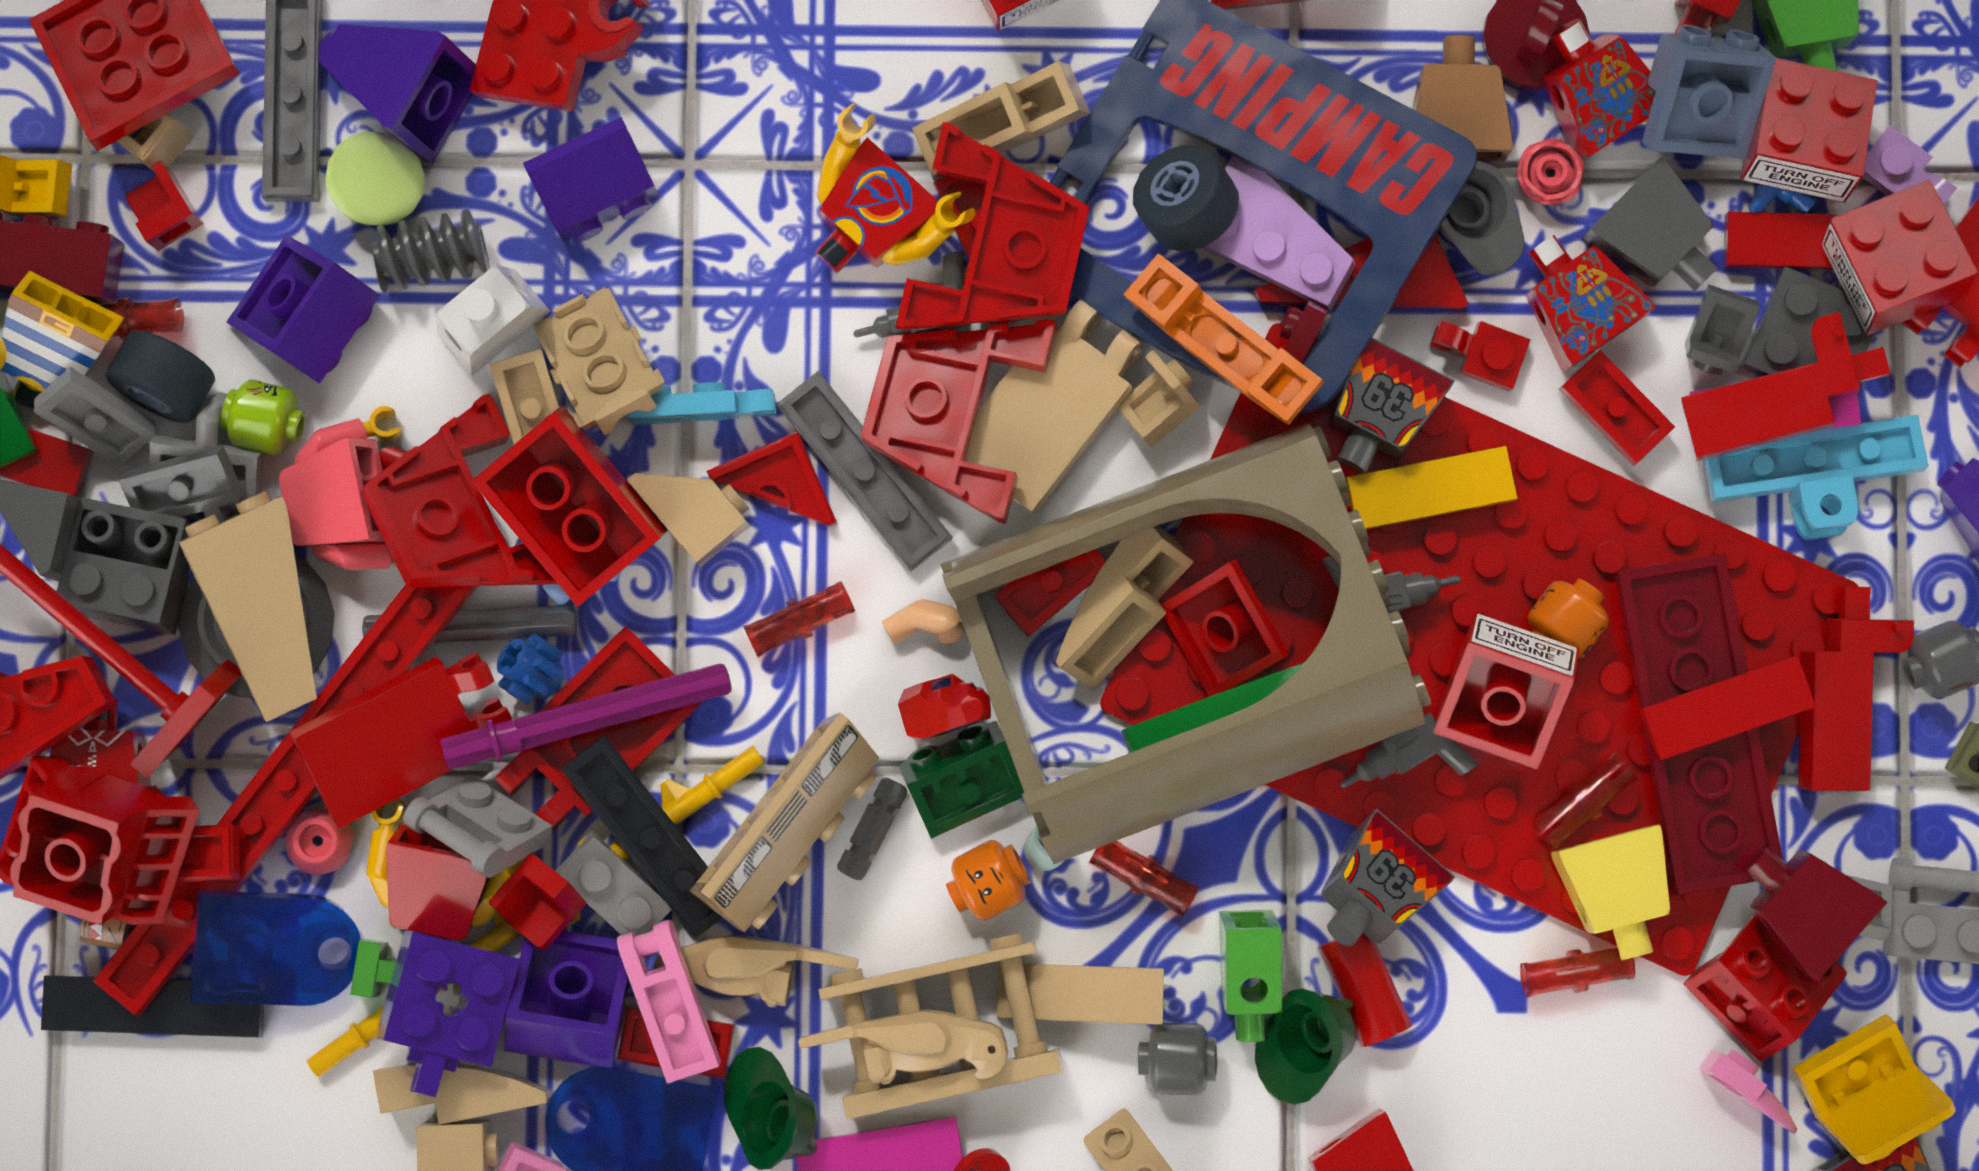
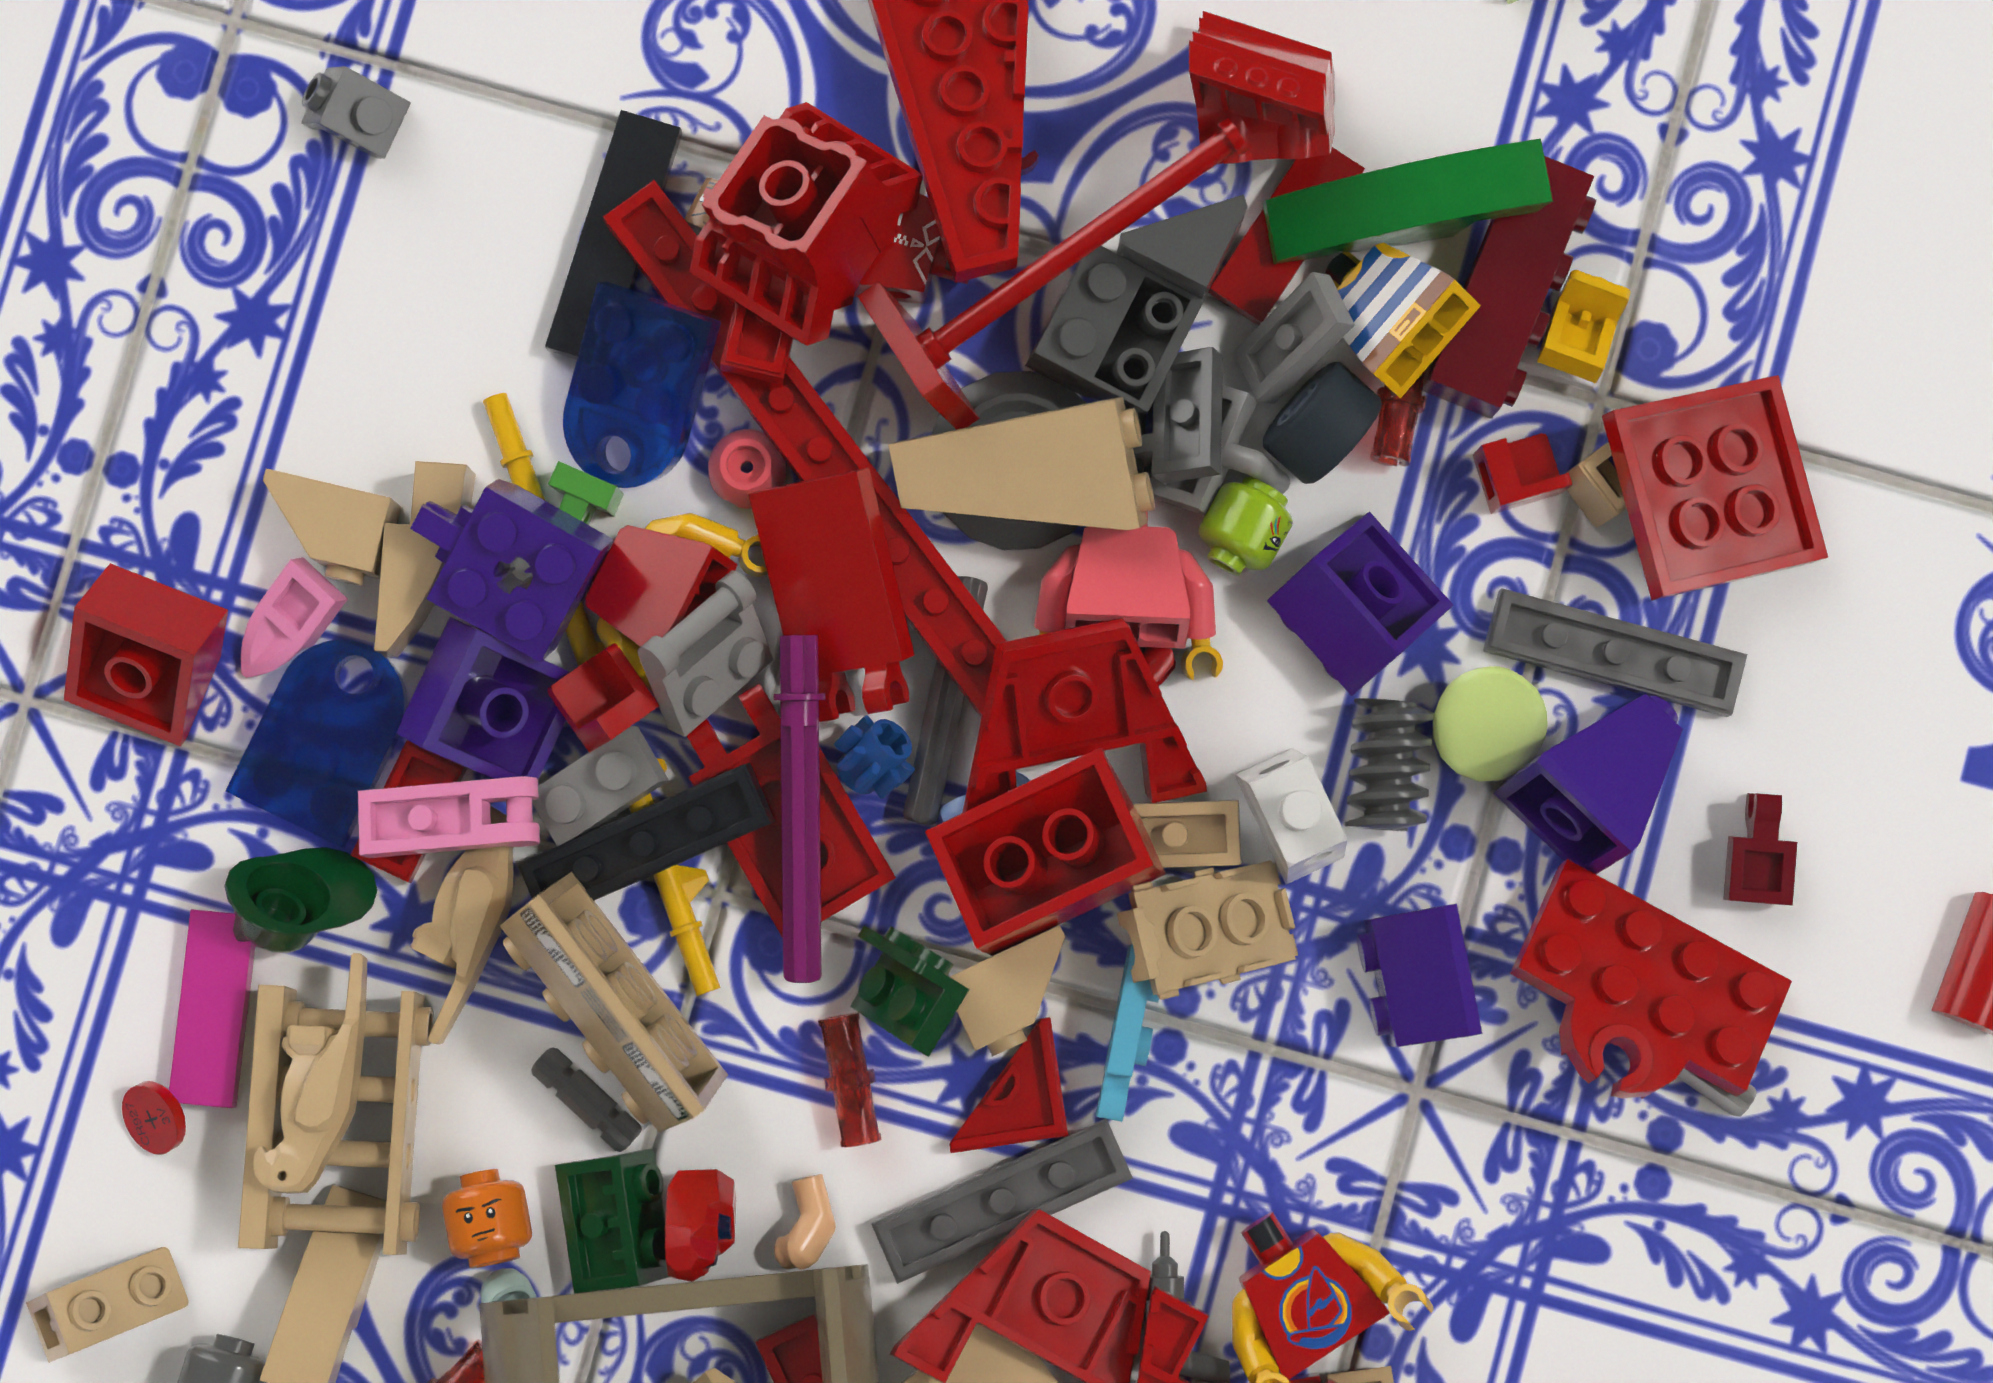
camera: 100 degrees right, 0 degrees up
(711, 587) = (908, 990): none -> dark green bracket

